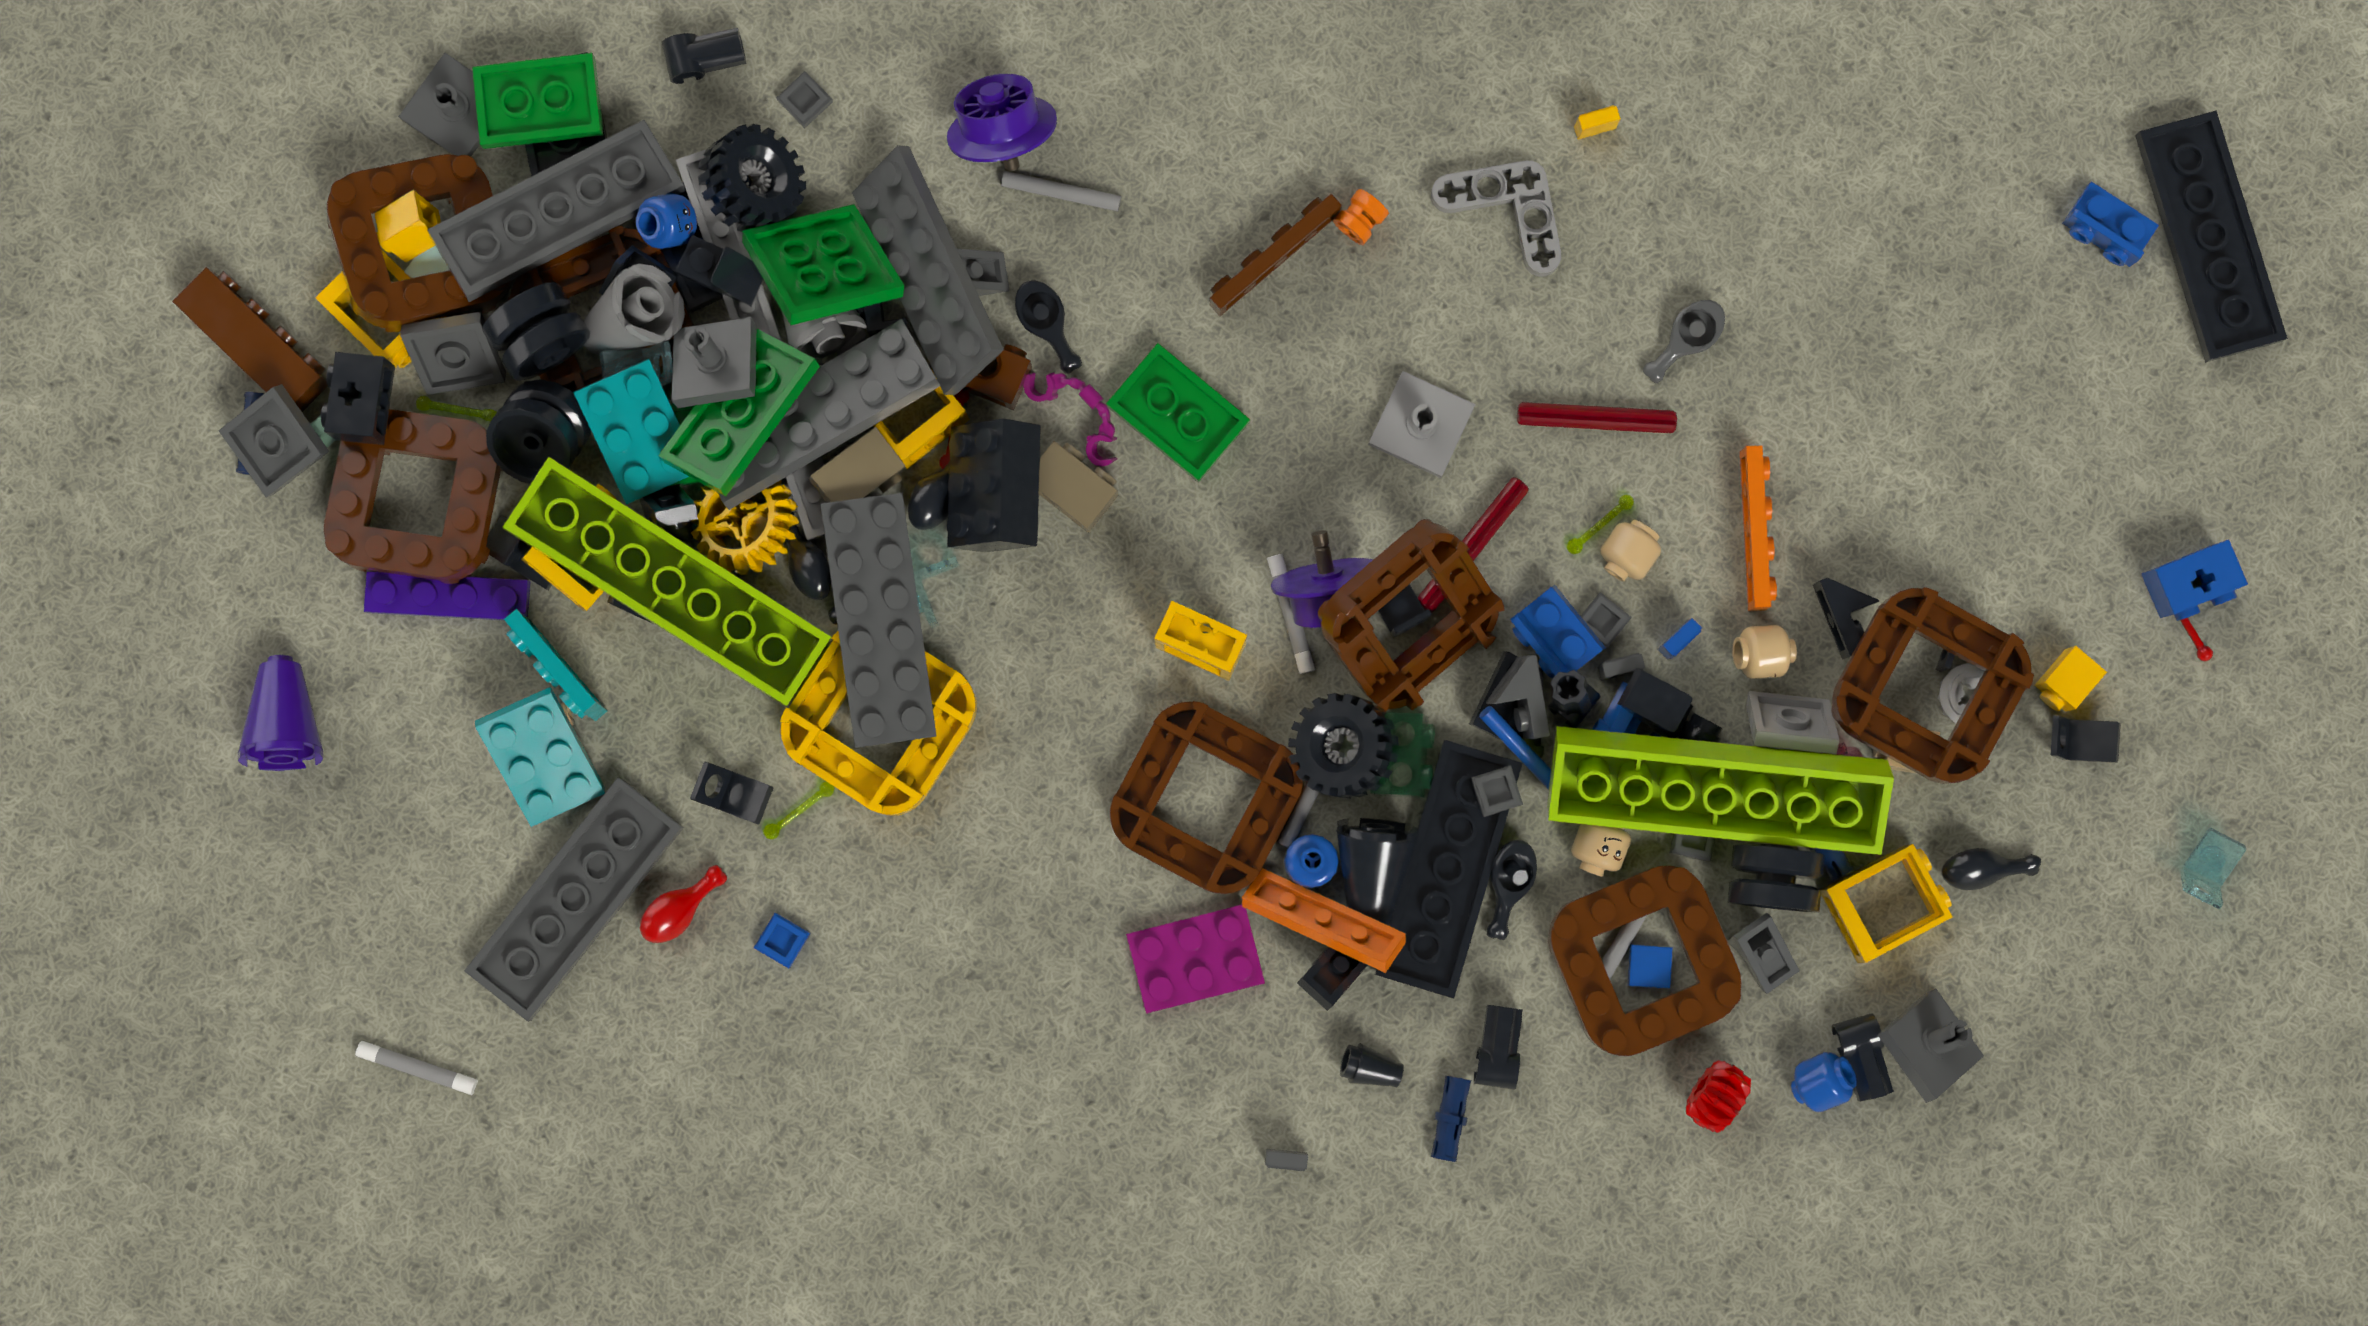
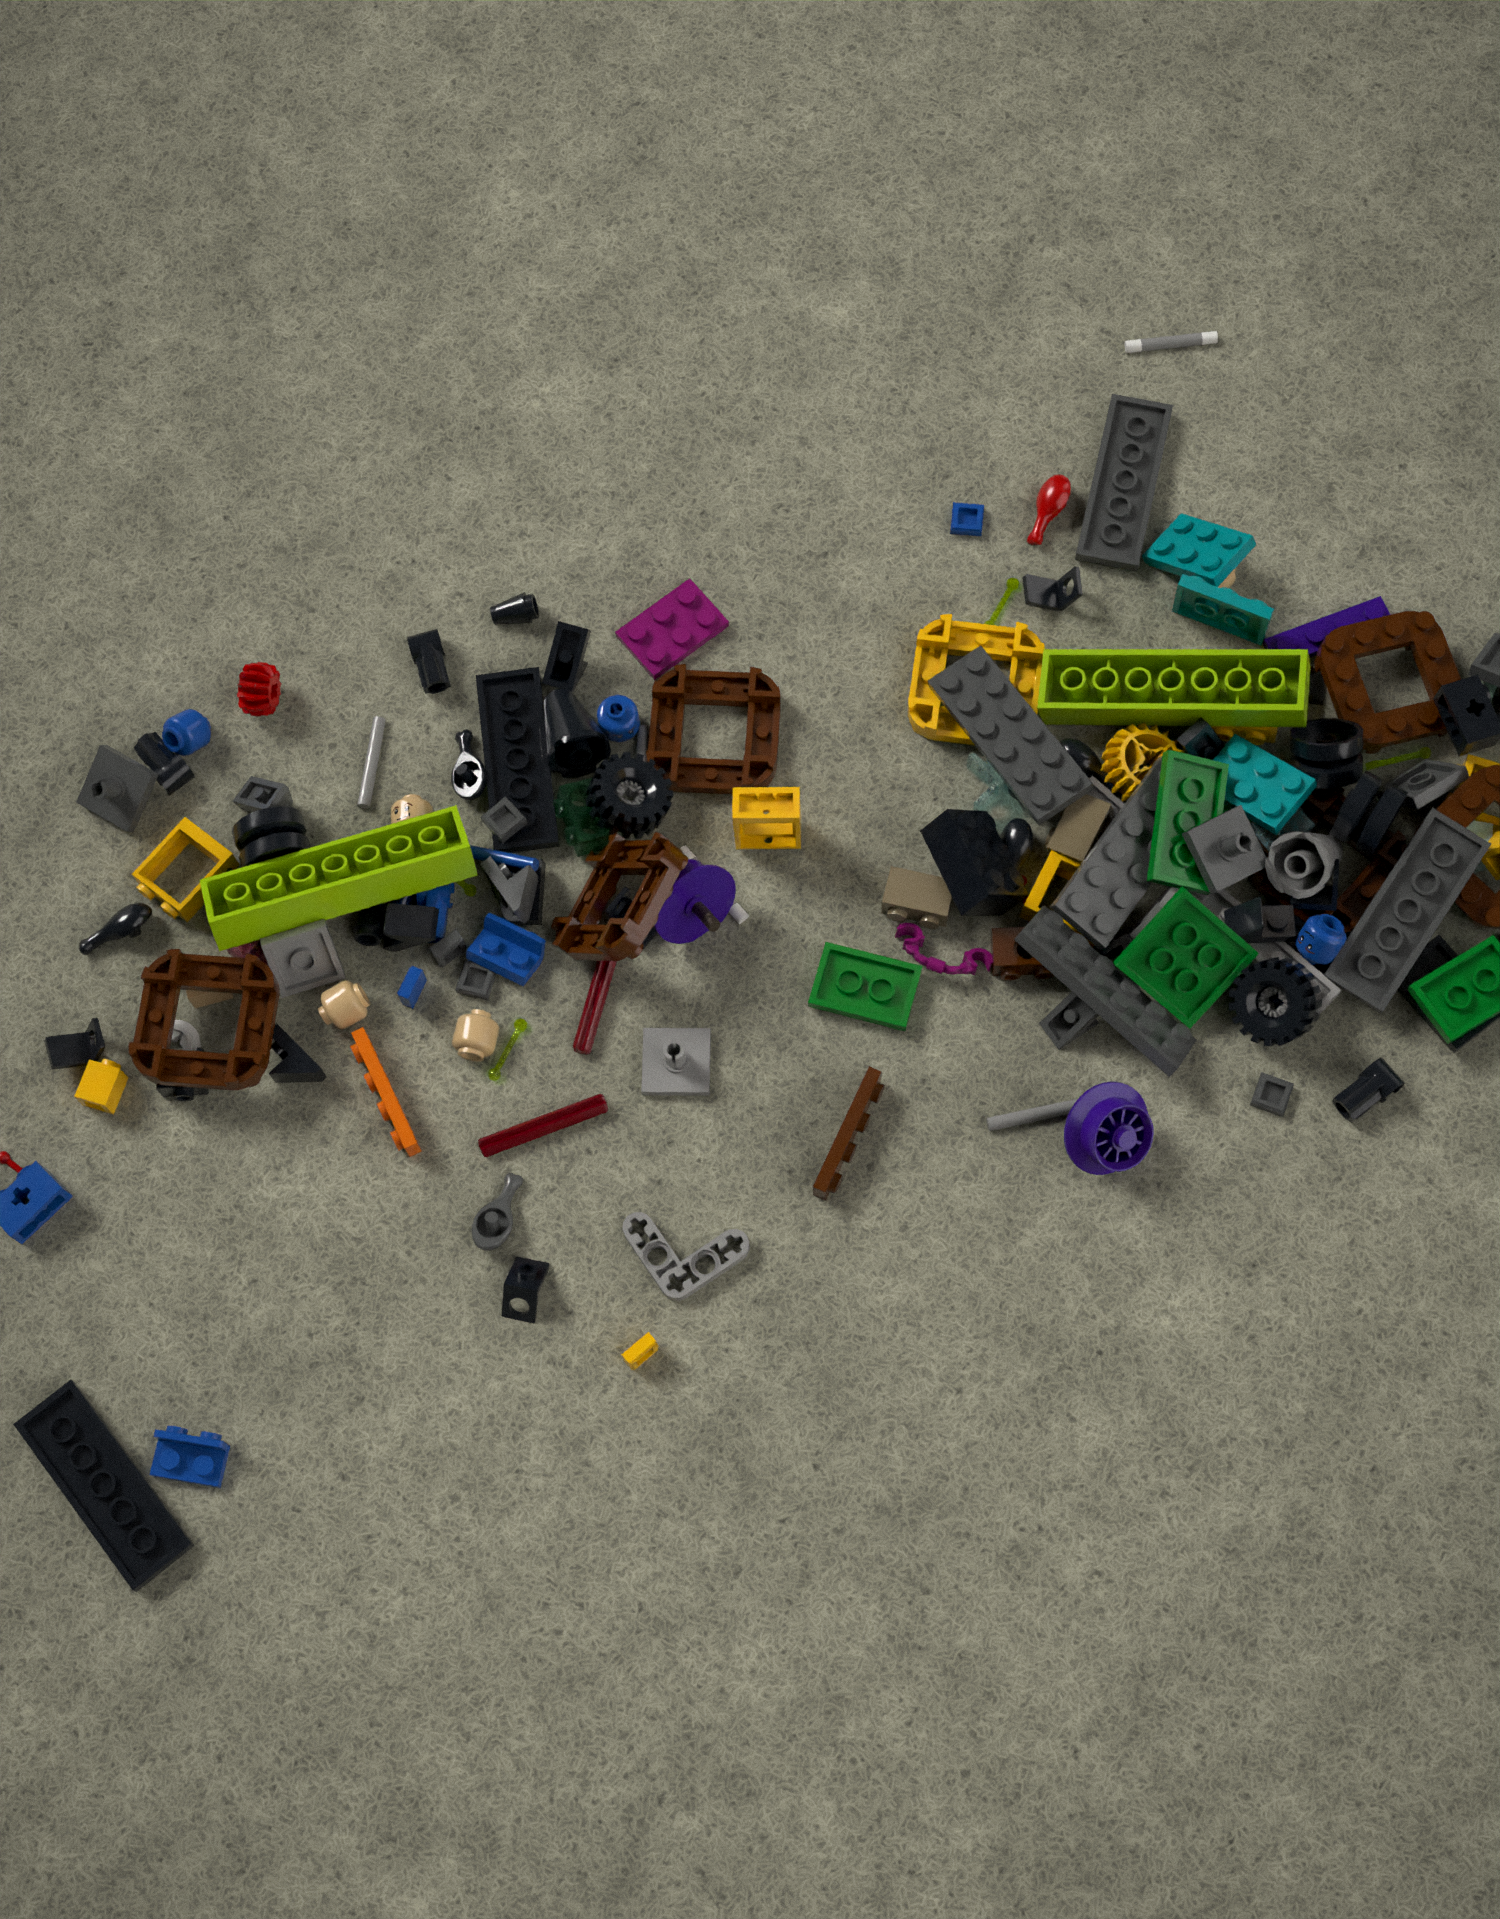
camera: 160 degrees right, 15 degrees down
(280, 719) = (1394, 500): dark purple cone -> none
(1044, 316) = (1002, 1011): black piece -> none
(1286, 1159) = (548, 528): dark grey tile -> none
(1324, 920) = (589, 678): orange plate -> none
(1361, 216) = (794, 1192): orange wheel -> none
(1450, 1118) = (444, 603): dark blue pin -> none
(1572, 697) = (474, 906): black piece -> none
(1650, 966) = (343, 760): blue tile -> none
(1688, 249) = (524, 1283): none -> black bracket
(1699, 934) = (379, 788): reddish brown plate -> none

